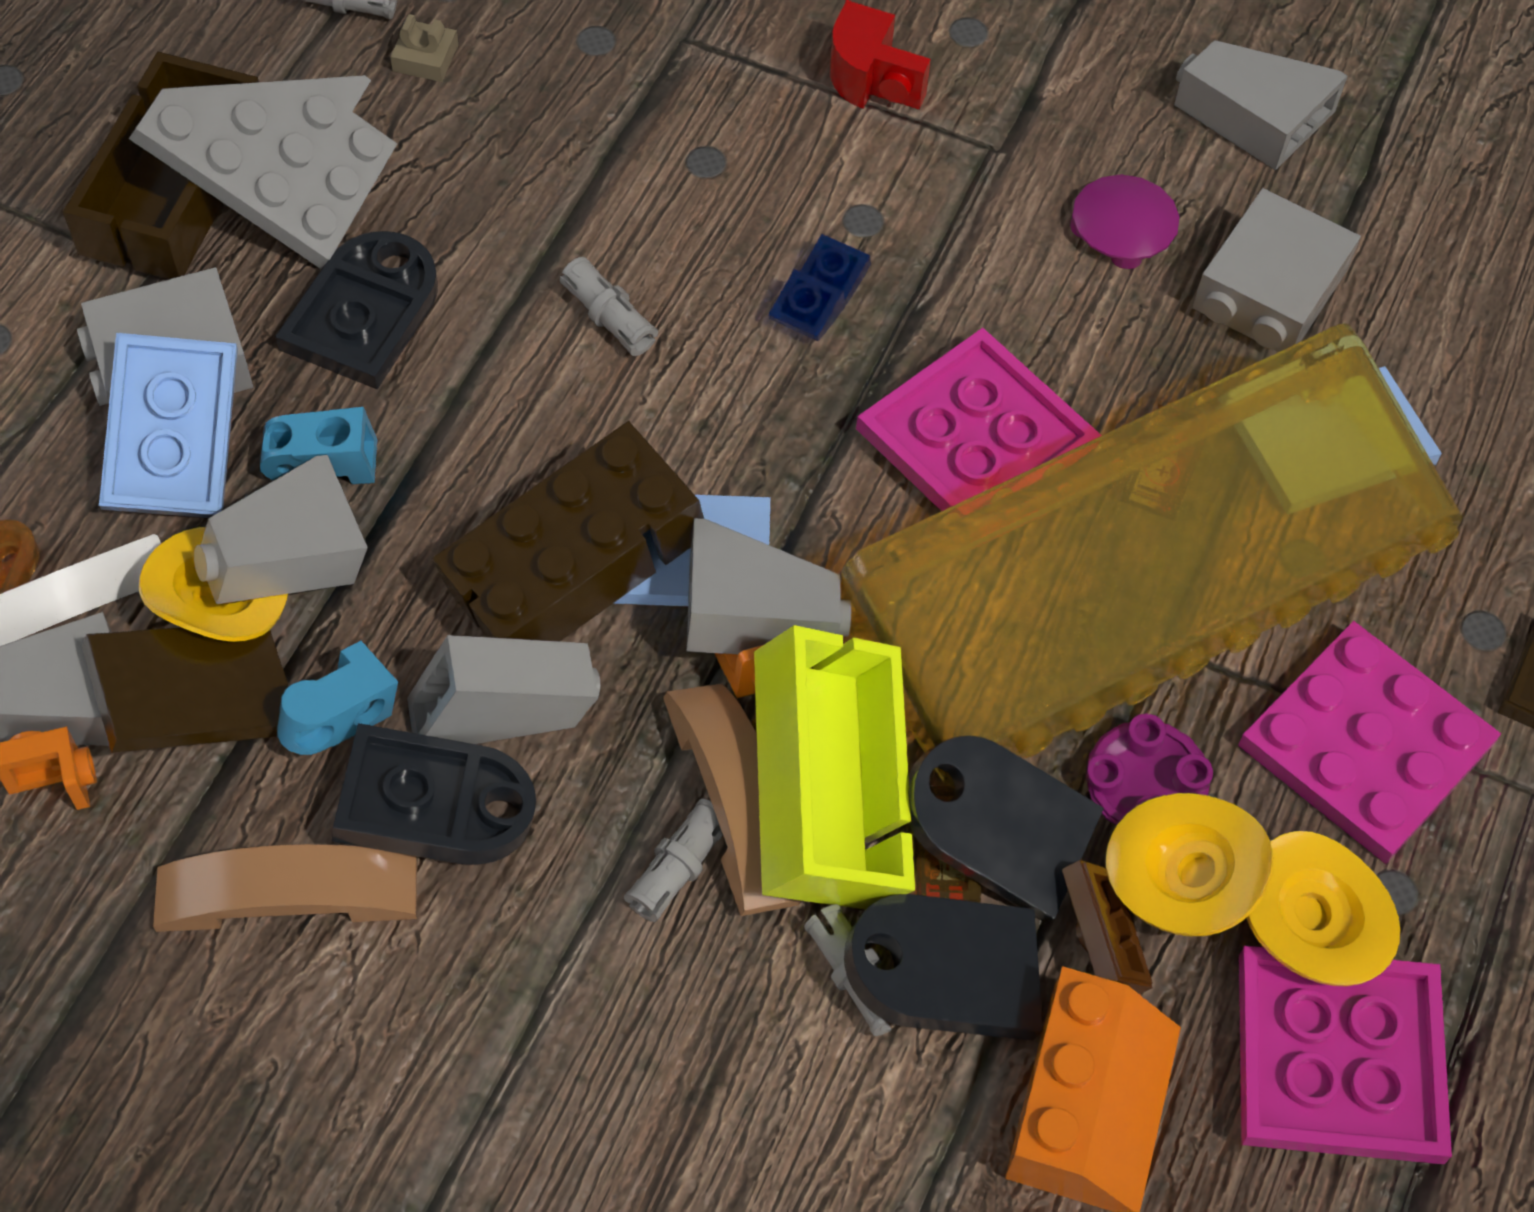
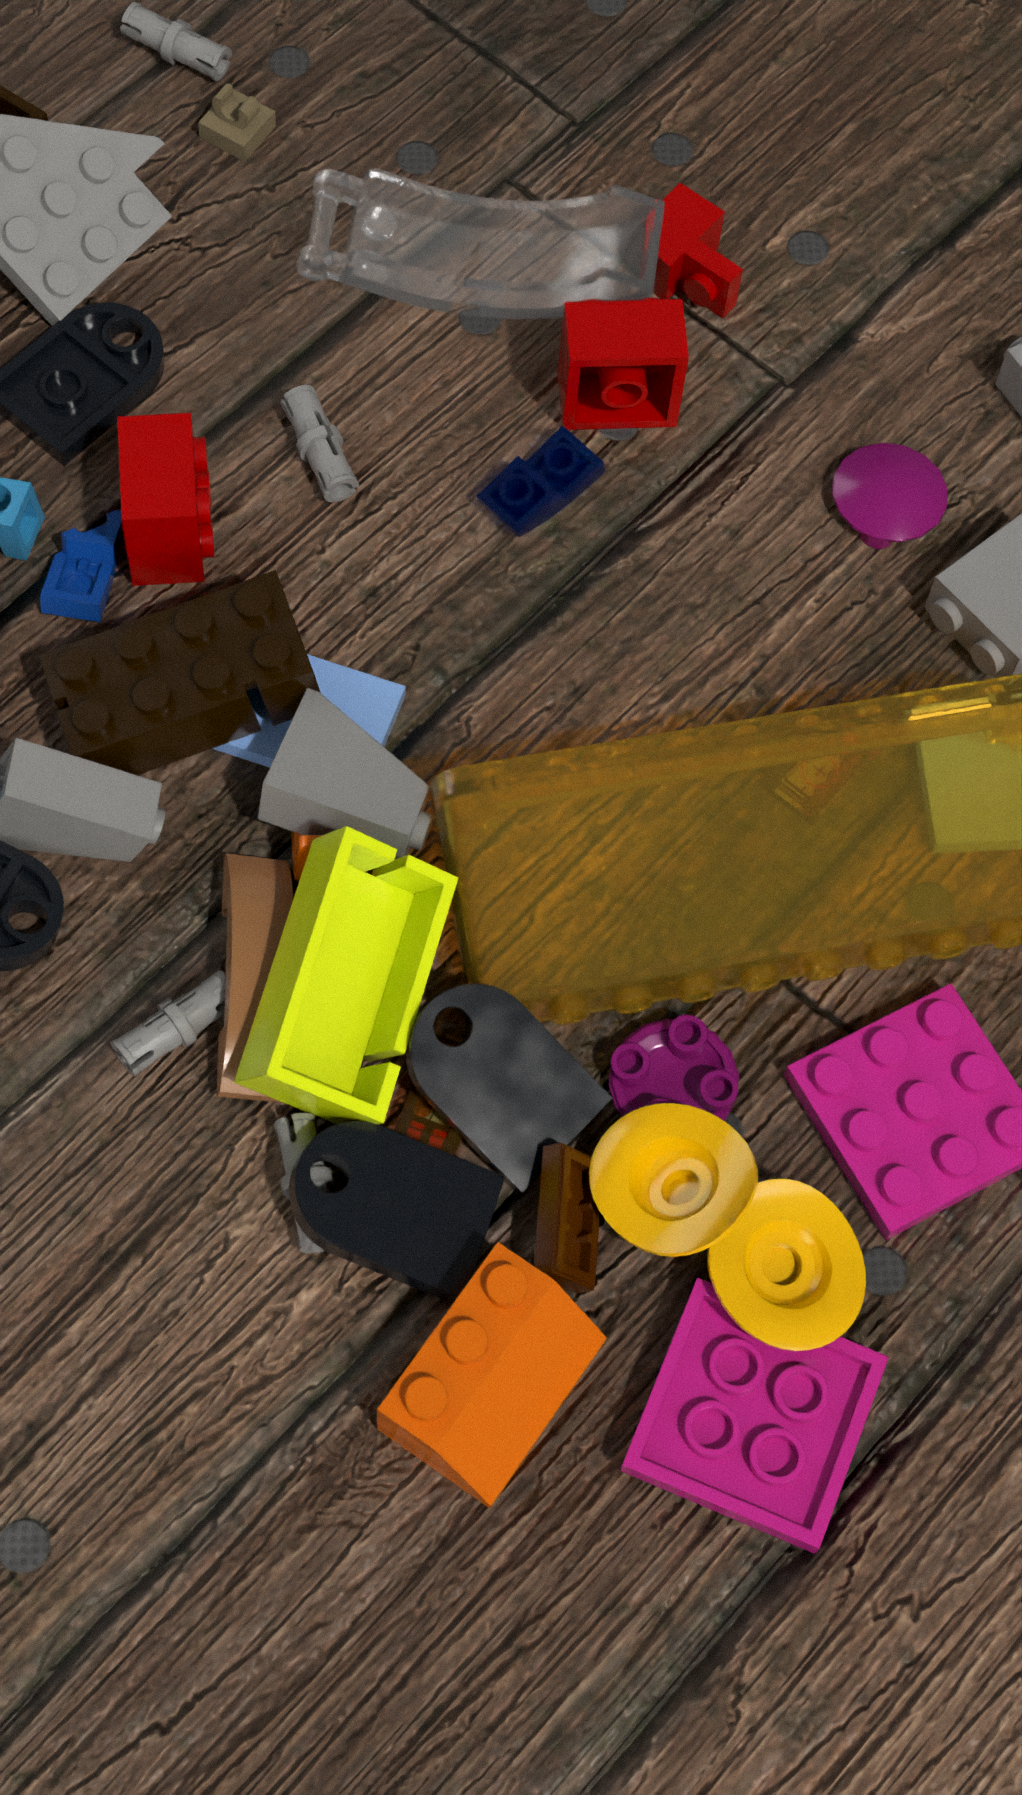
camera: 15 degrees right, 5 degrees up
(434, 476) = (83, 571): none -> blue slope
(493, 388) = (164, 498): none -> red brick
(695, 103) = (481, 251): none -> clear windscreen
(858, 165) = (622, 363): none -> red brick
(971, 422) = (639, 665): dark pink plate -> none

